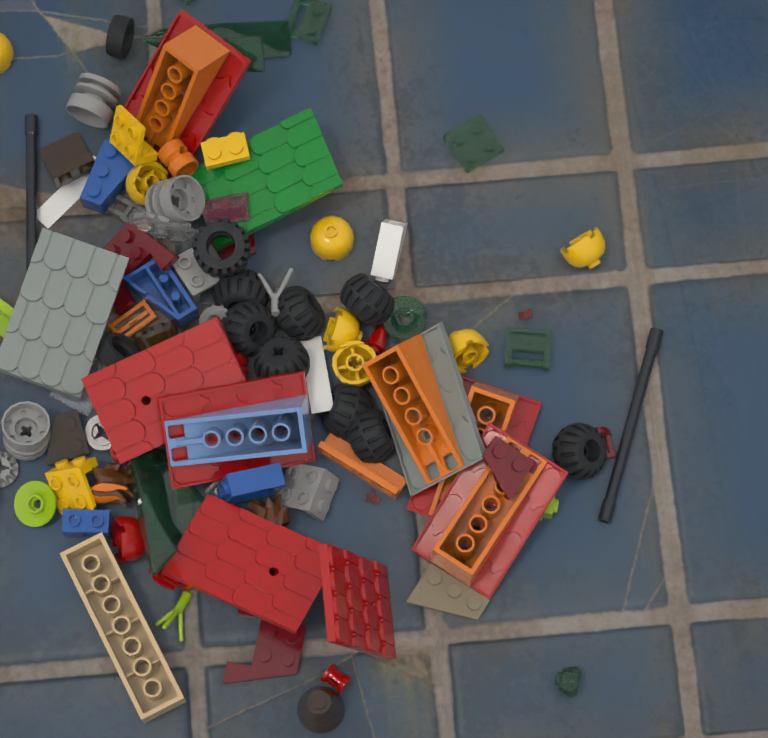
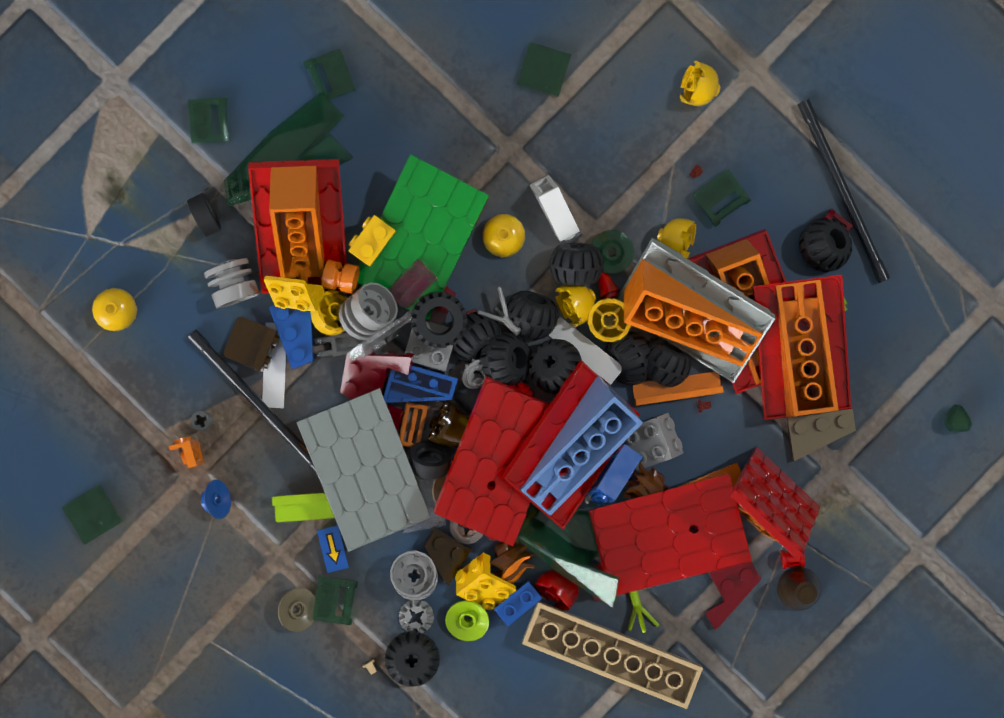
camera: 45 degrees left, 15 degrees up
(507, 465) = (796, 309): dark red wing -> none

